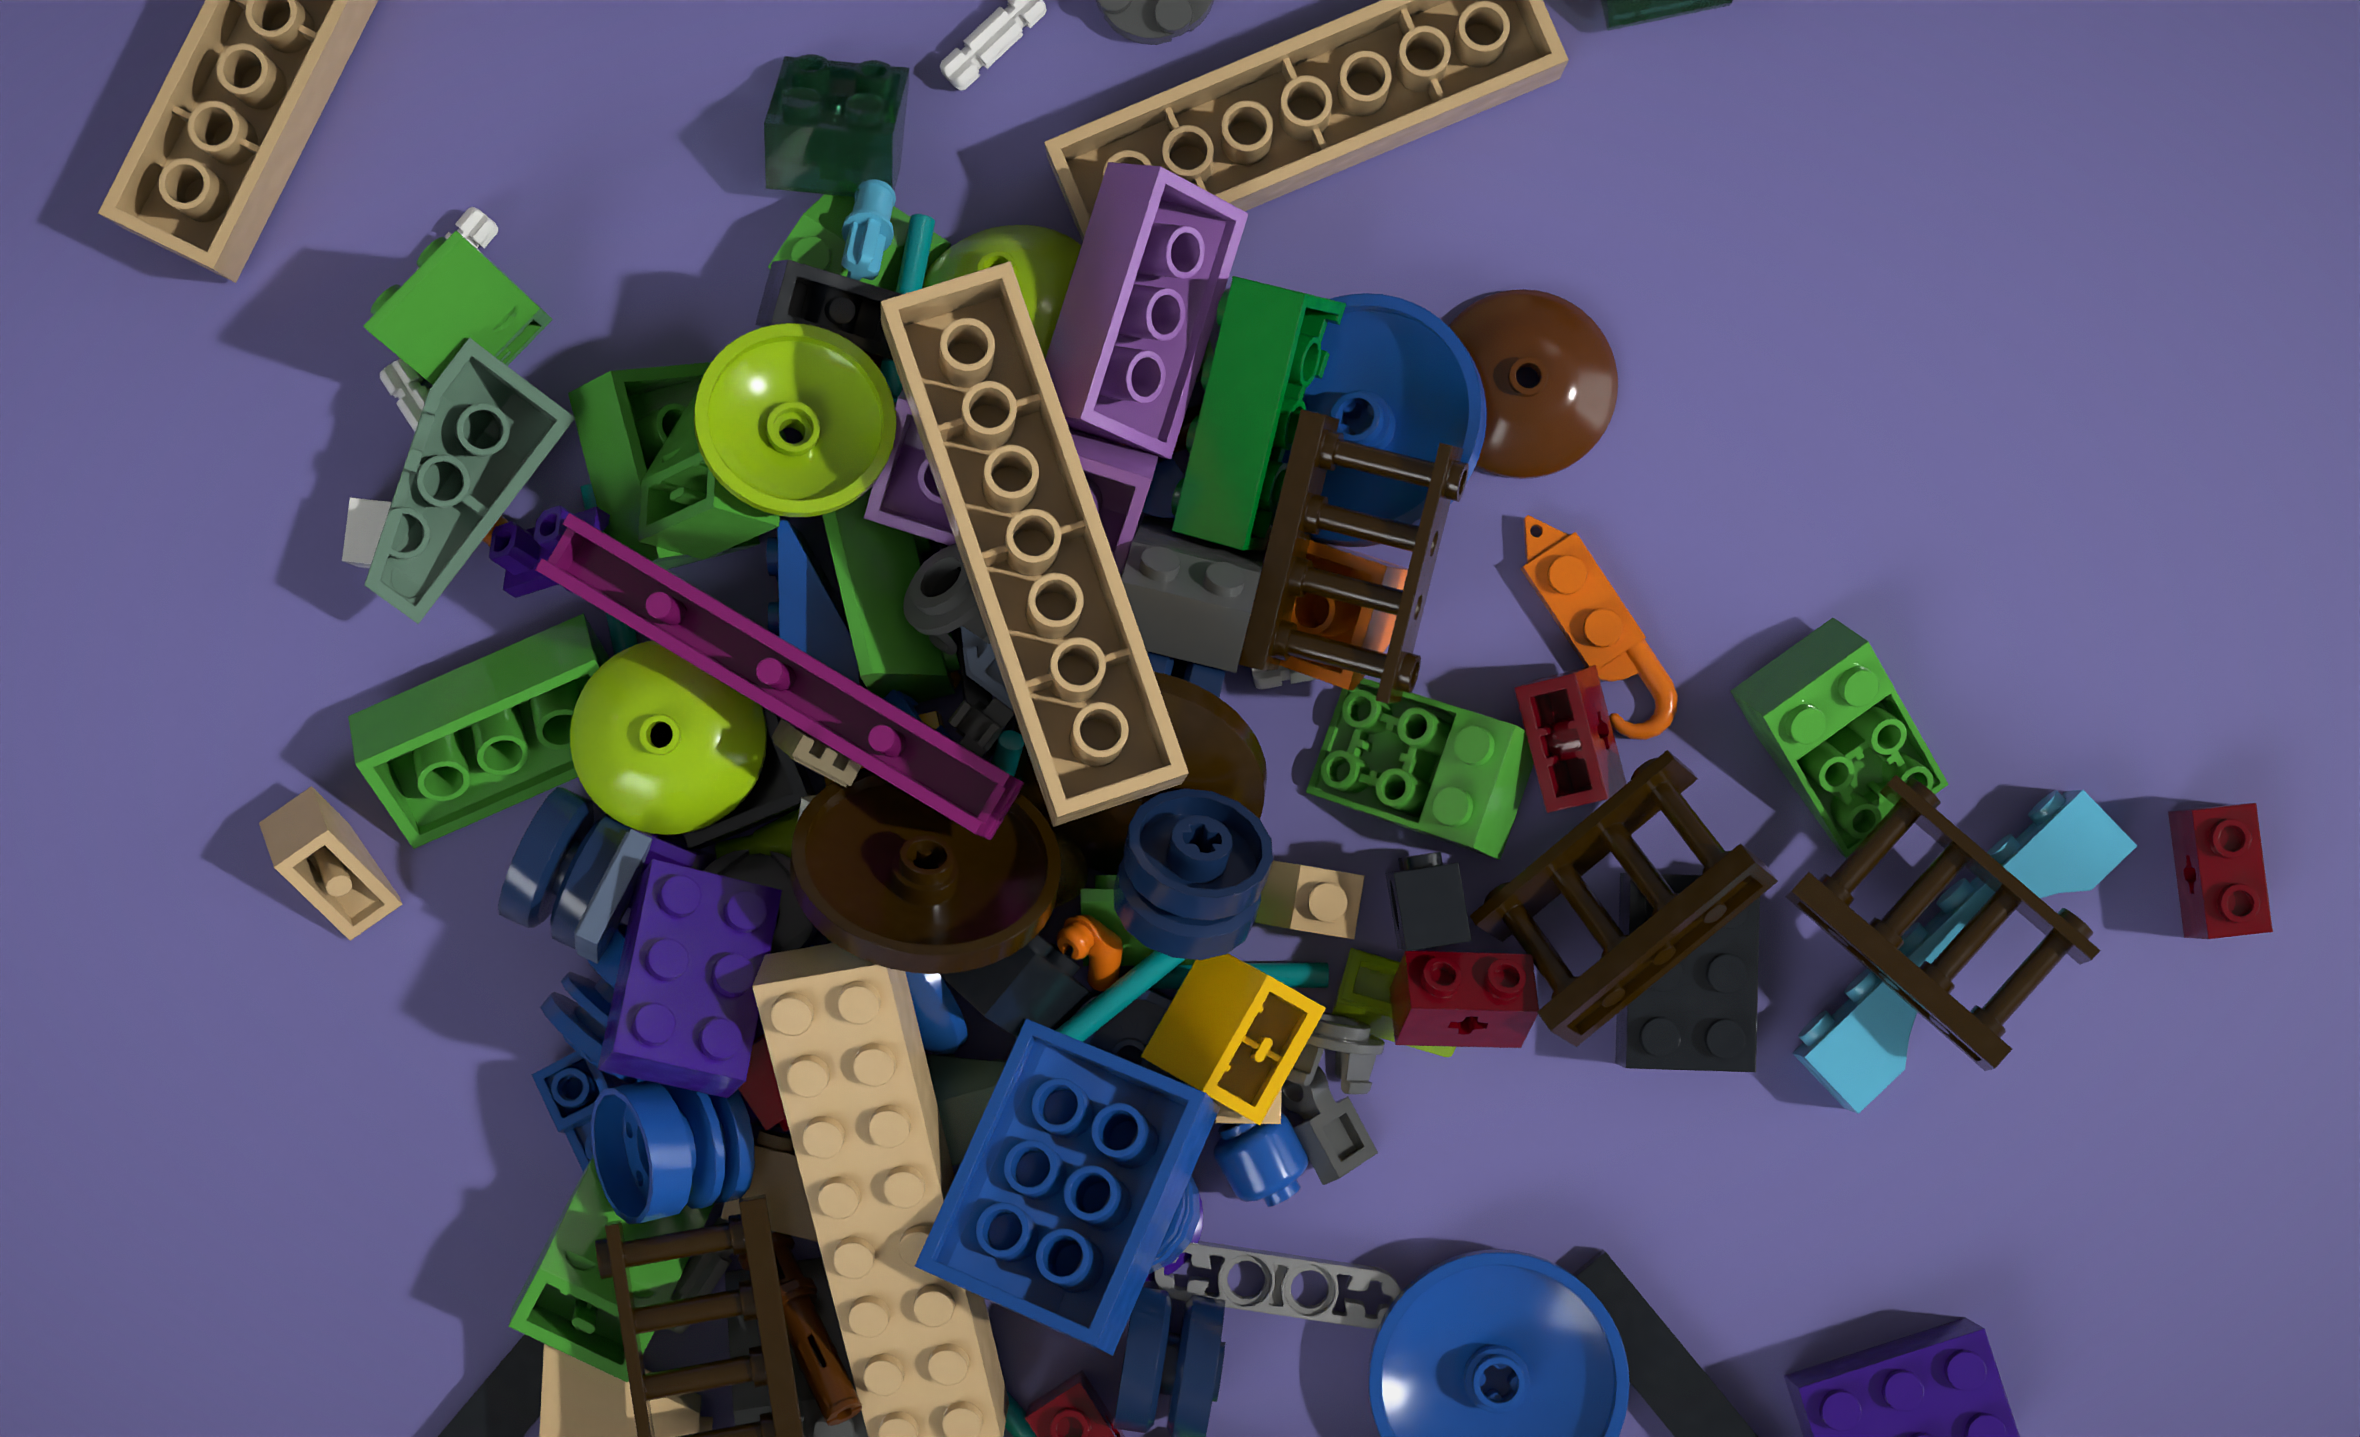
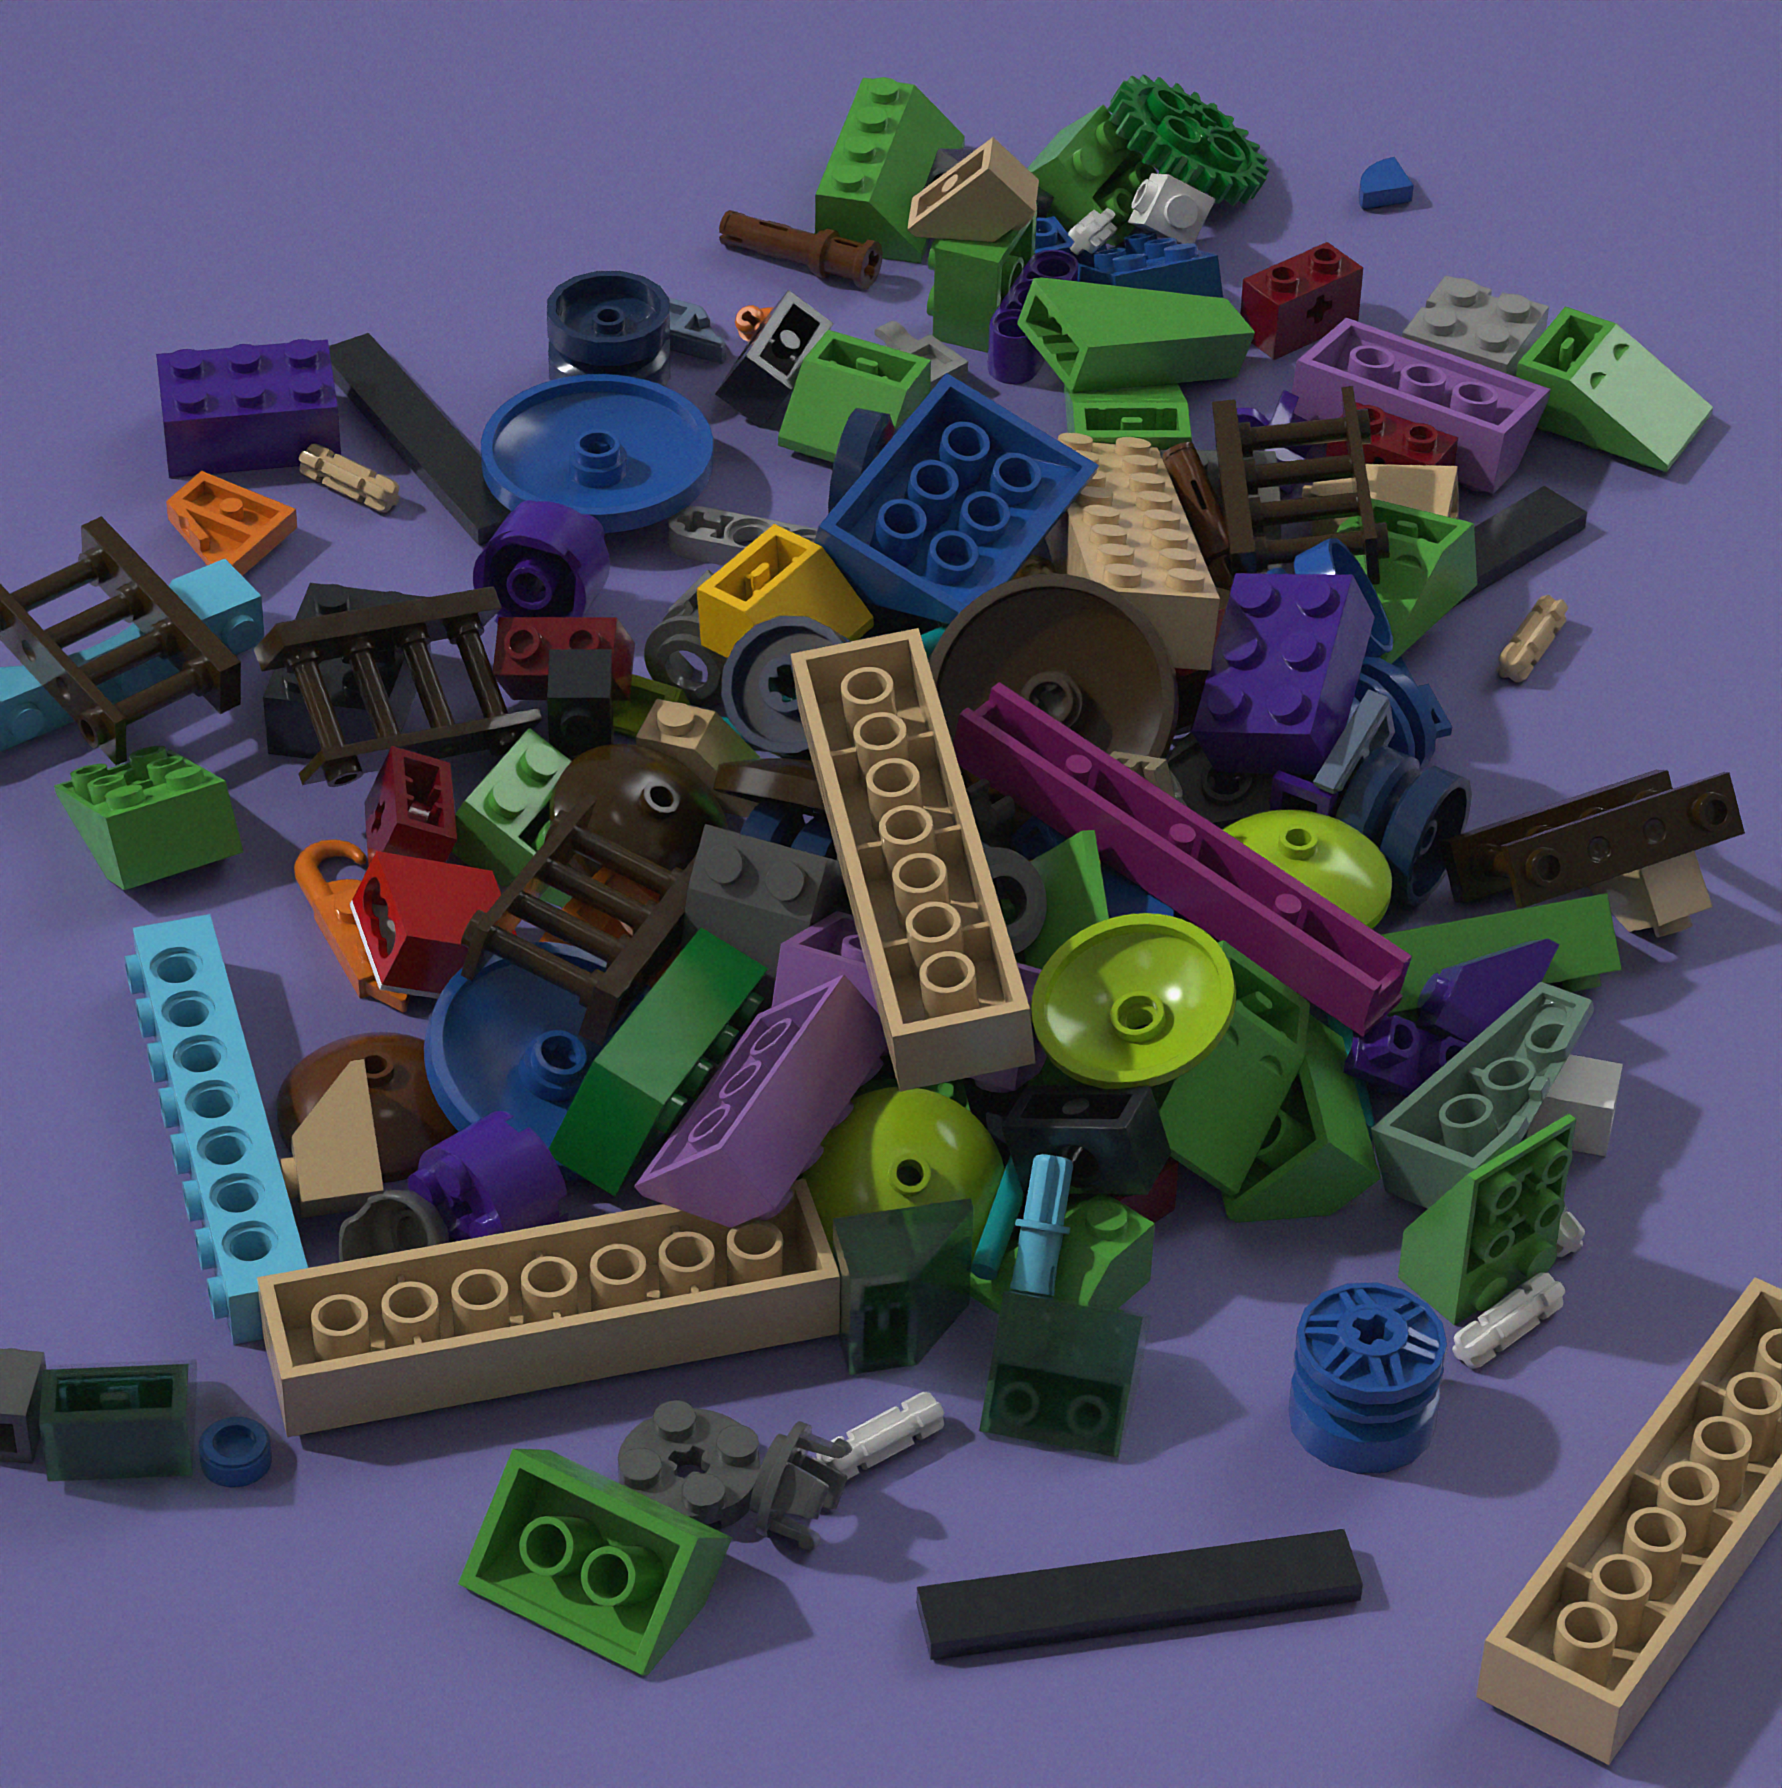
camera: 175 degrees left, 45 degrees down
(383, 930) = (1591, 837): none -> dark brown fence
(455, 1255) = (1532, 638): none -> tan axle
(473, 633) = (1479, 991): none -> dark purple slope
(572, 165) = (1367, 1377): none -> blue wheel
(994, 171) = (901, 1281): none -> clear green slope
(1373, 782) = (641, 803): none -> dark brown dish
(1386, 226) = (491, 1180): none -> dark purple brick
(1460, 173) = (390, 1225): none -> dark grey hair
(1510, 576) = (415, 917): none -> red piece
(1516, 1158) = (544, 561): none -> dark purple brick
(1538, 267) = (335, 1150): none -> tan slope
(1593, 102) = (218, 1116): none -> medium azure brick
(1766, 1329) = (349, 478): none -> tan axle
(1876, 1216) = (229, 521): none -> orange wing

